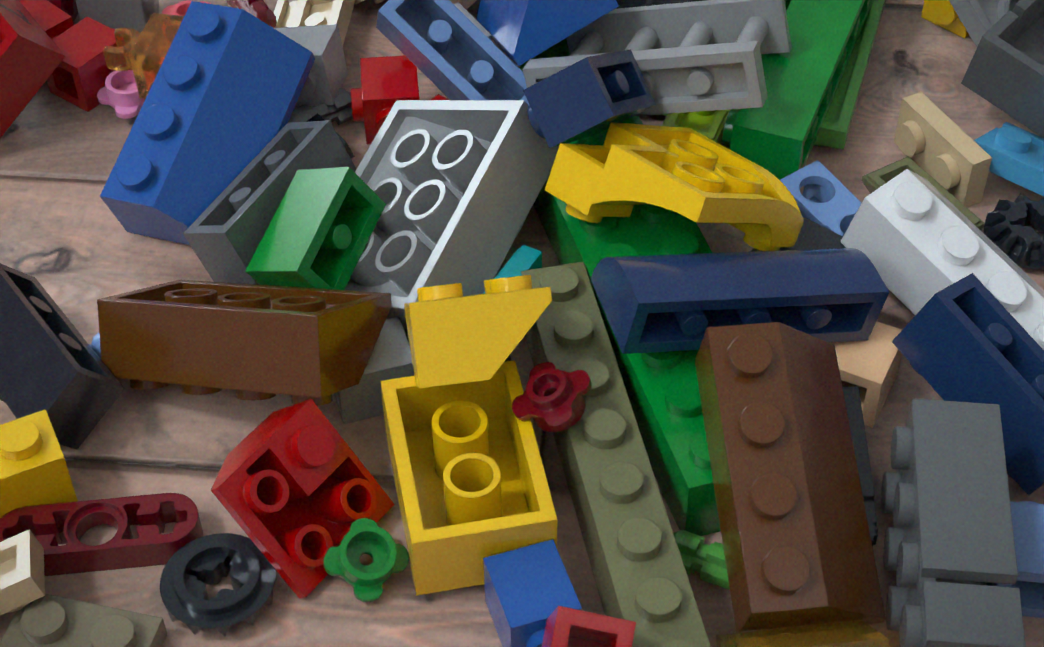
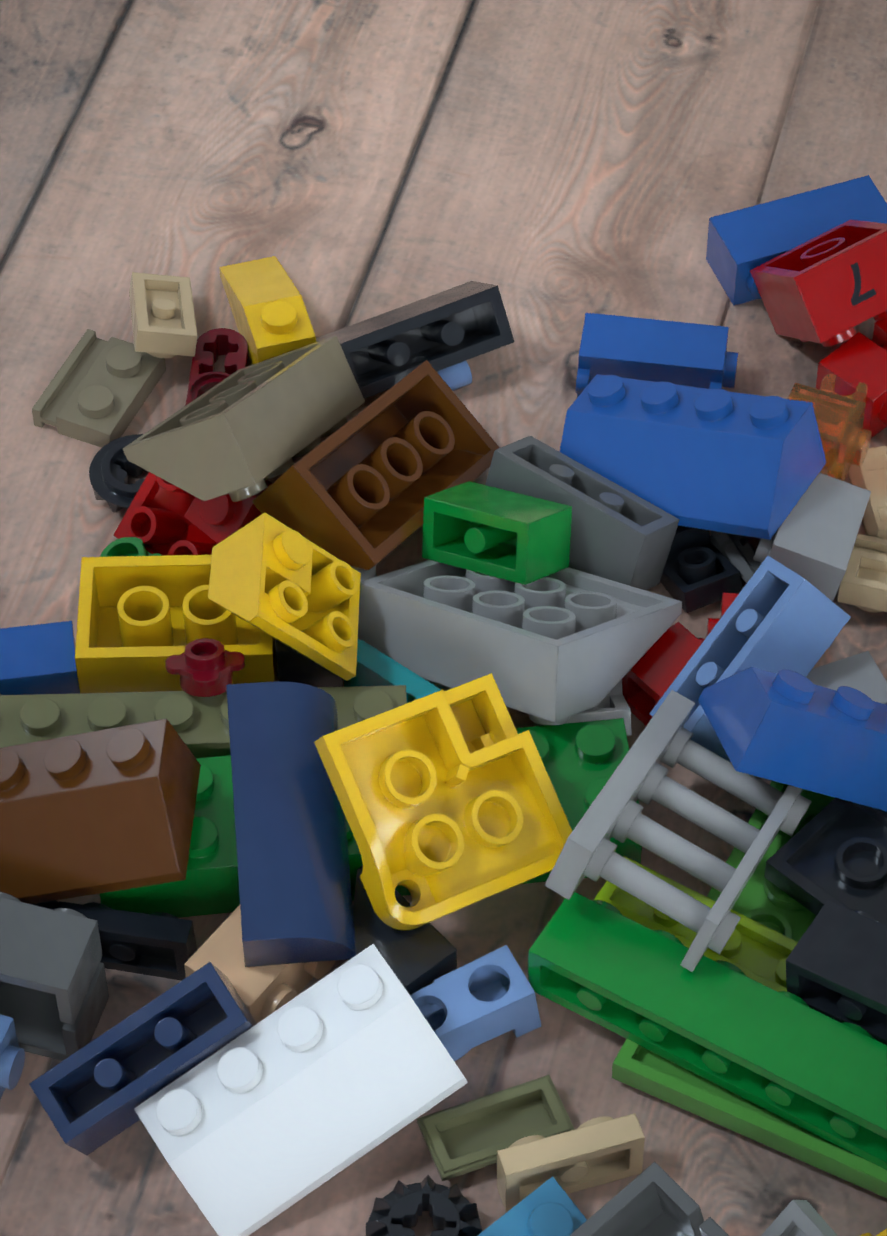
camera: 100 degrees right, 5 degrees up
(55, 193) = (655, 352): none -> blue brick
(204, 415) = (252, 423): none -> dark tan slope
(587, 97) = (562, 712): dark blue brick -> none

